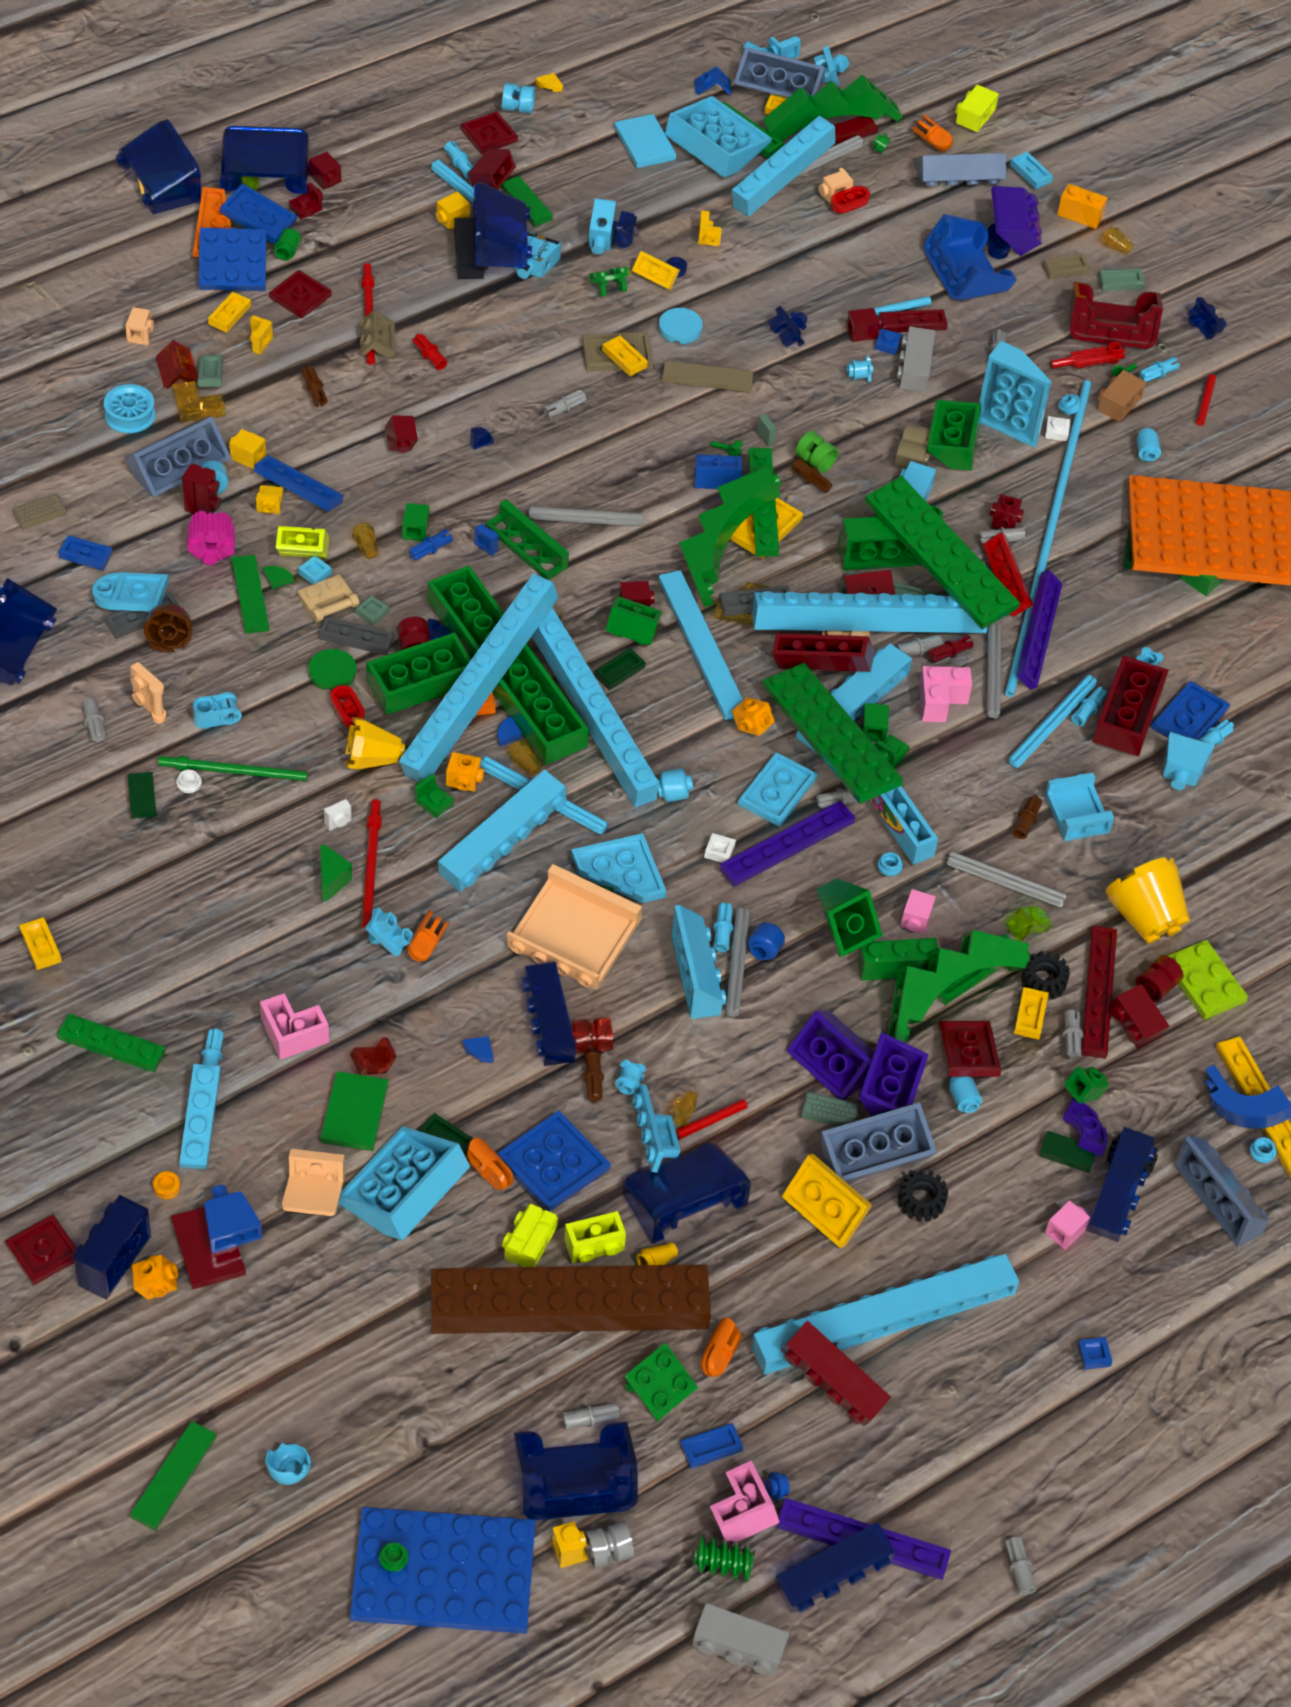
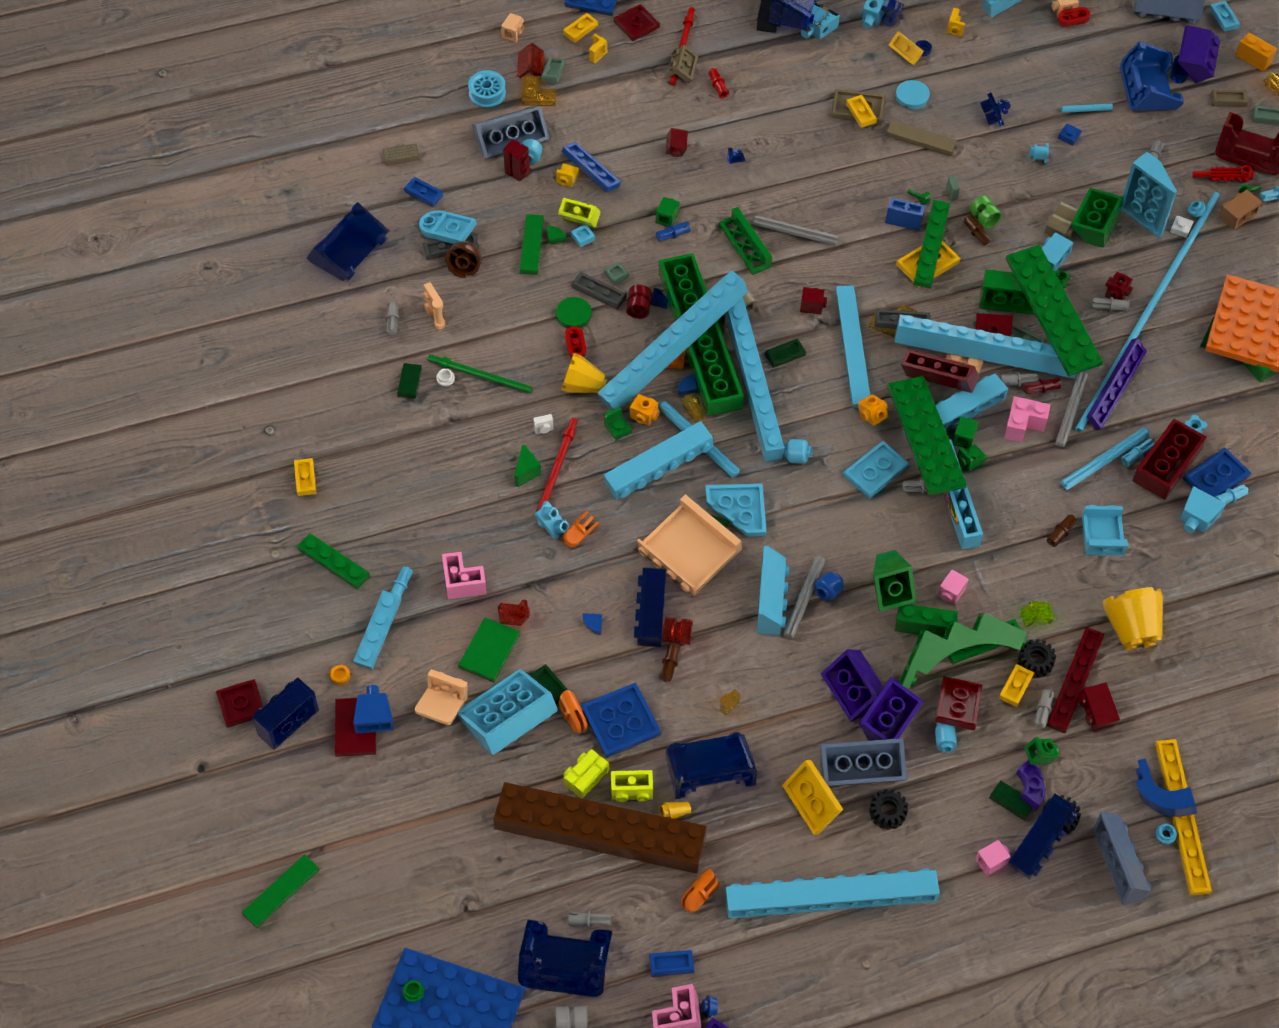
camera: 20 degrees right, 5 degrees up
(154, 1277) = (309, 742): light orange brick -> none
(210, 536) = (514, 196): dark pink brick -> none
(214, 710) = (479, 328): medium azure piece -> none
(247, 448) = (562, 133): yellow brick -> none
(288, 1463) = (361, 902): medium azure hair -> none
(314, 386) = (625, 95): reddish brown axle -> none
(324, 594) = (585, 254): tan plate -> none
(365, 538) = (627, 217): clear yellow cone -> none
(417, 673) = (631, 327): green brick -> none
(486, 539) = (715, 234): blue plate -> none
(564, 404) = (805, 140): light grey axle -> none
(569, 1544) = (543, 1013): yellow brick -> none
(617, 274) = (862, 47): green plate -> none
(630, 1077) = (696, 669): medium azure brick -> none
(634, 621) = (805, 318): green brick -> none
(656, 1130) = (703, 715): medium azure bracket -> none
(660, 1382) = (647, 906): green hinge -> none
(711, 1119) = (747, 713): red bar -> none
(719, 848) = (817, 507): white plate -> none
(723, 927) = (801, 568): medium azure axle -> none
(740, 500) = (876, 273): green arch -> none
(787, 843) = (869, 513): dark purple plate -> none
(829, 1110) = (838, 727): sand green tile -> none
(835, 1374) = (777, 932): dark red brick -> none
(863, 324) = (1053, 117): dark red brick -> none
(890, 859) = (943, 541): medium azure plate -> none
(916, 359) = (1086, 152): light grey brick -> none
(925, 319) = (1094, 121): dark red tile -> none
(1006, 879) = (1030, 576): light grey axle -> none
(1007, 570) = (1105, 334): red plate -> none
(1094, 1353) = (983, 963): blue plate -> none
(1148, 445) = (1249, 252): medium azure brick -> none
(1160, 977) = (1125, 680): dark red wheel -> none
(1208, 980) = (1162, 688): lime plate -> none

